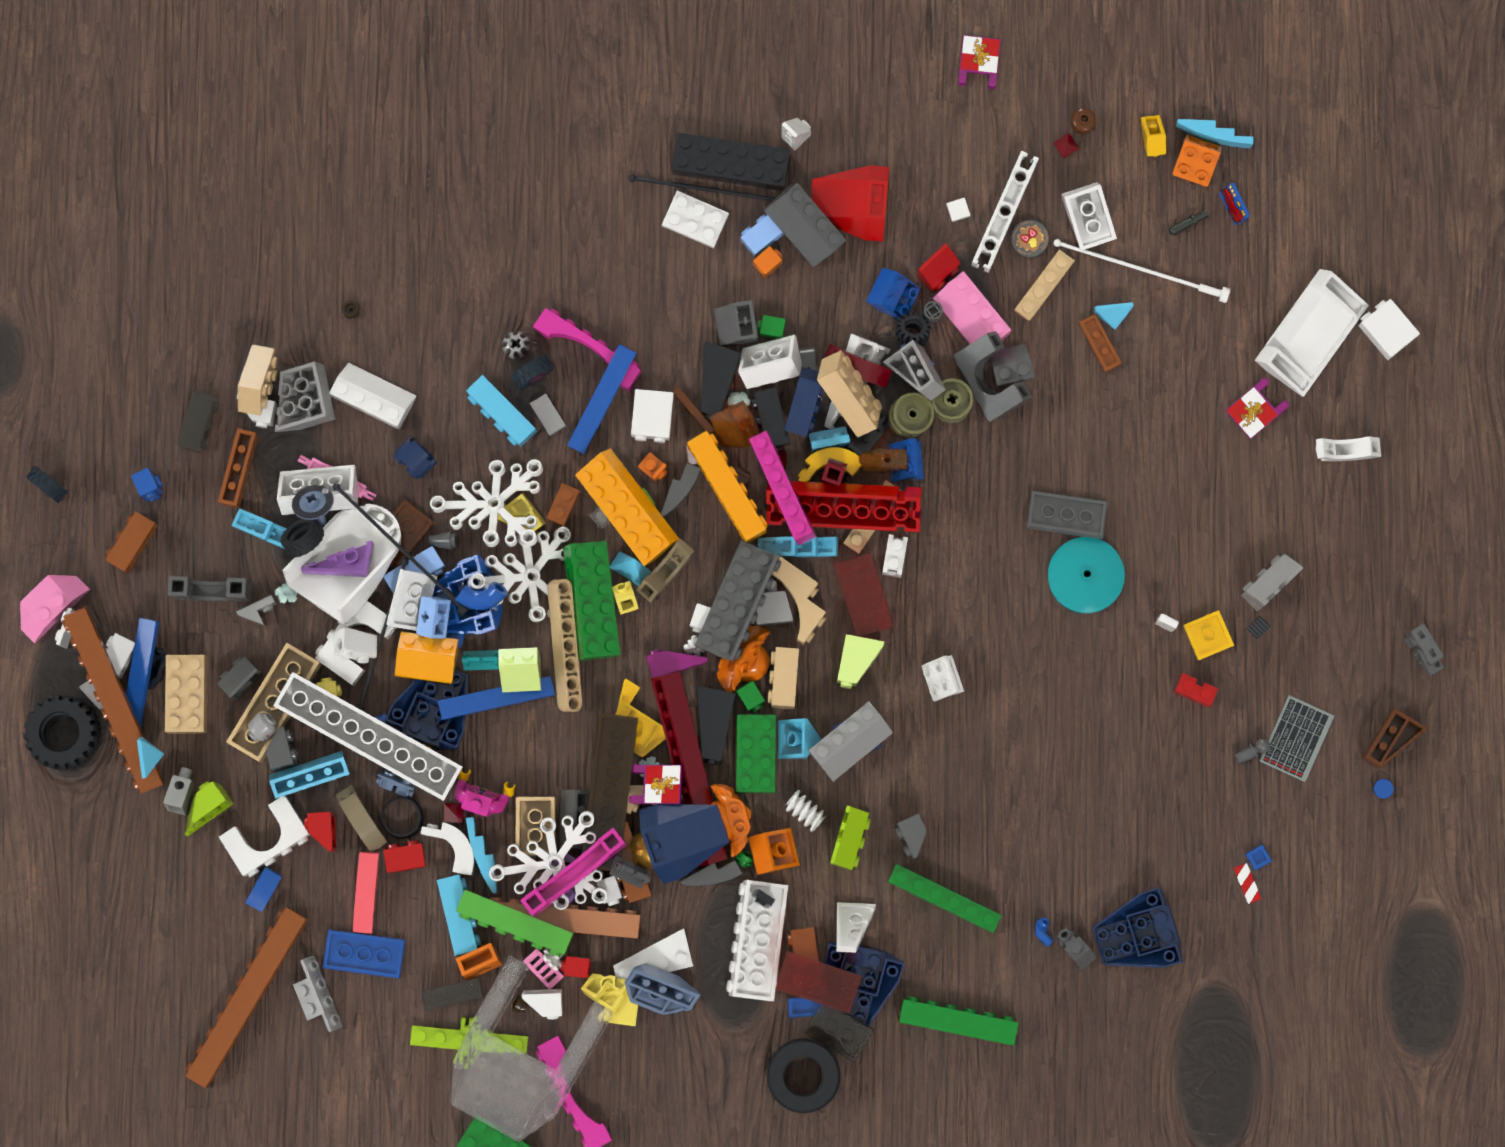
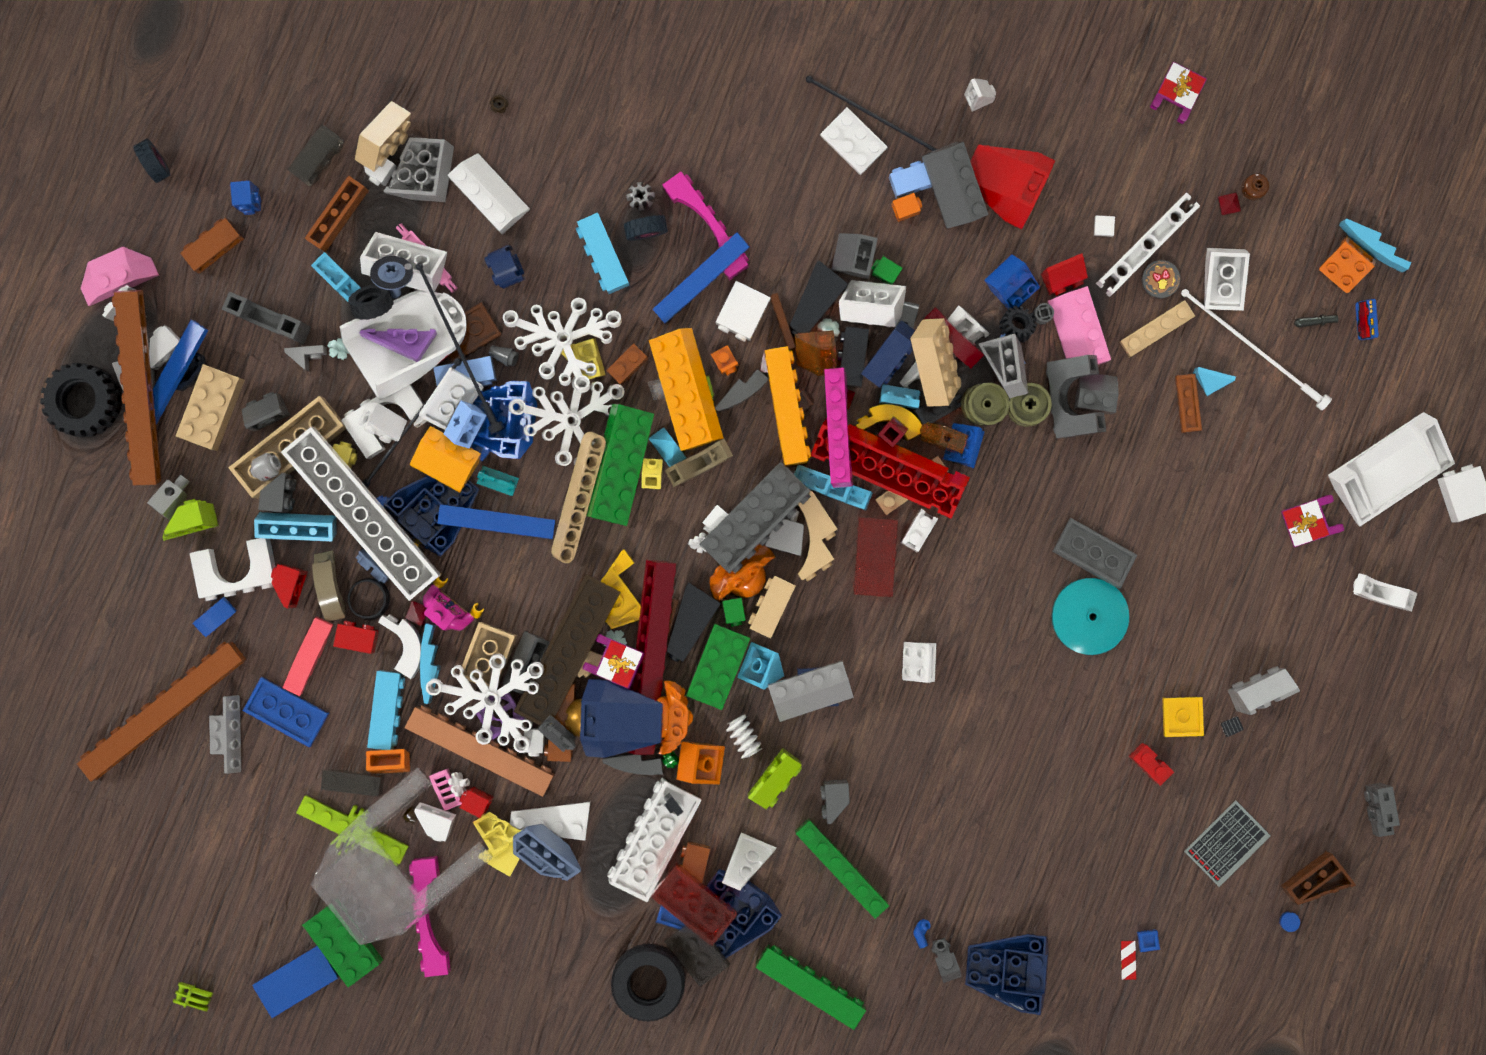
camera: 20 degrees right, 5 degrees up
(148, 756) = (149, 453): medium azure slope -> none
(482, 599) = (516, 426): blue cylinder -> none
(514, 922) = (432, 739): bright green brick -> none
(520, 669) = (527, 504): yellowish green slope -> none
(547, 414) = (645, 273): light grey tile -> none
(574, 873) = (504, 716): dark pink arch -> none
(670, 662) = (669, 550): magenta slope -> none
(730, 162) = (907, 98): black brick -> none
(856, 659) = (845, 615): yellowish green slope -> none
(1153, 135) = (1316, 226): yellow slope -> none
(1166, 622) = (1149, 691): white tile -> none
(1261, 746) = (1192, 839): dark grey pin -> none

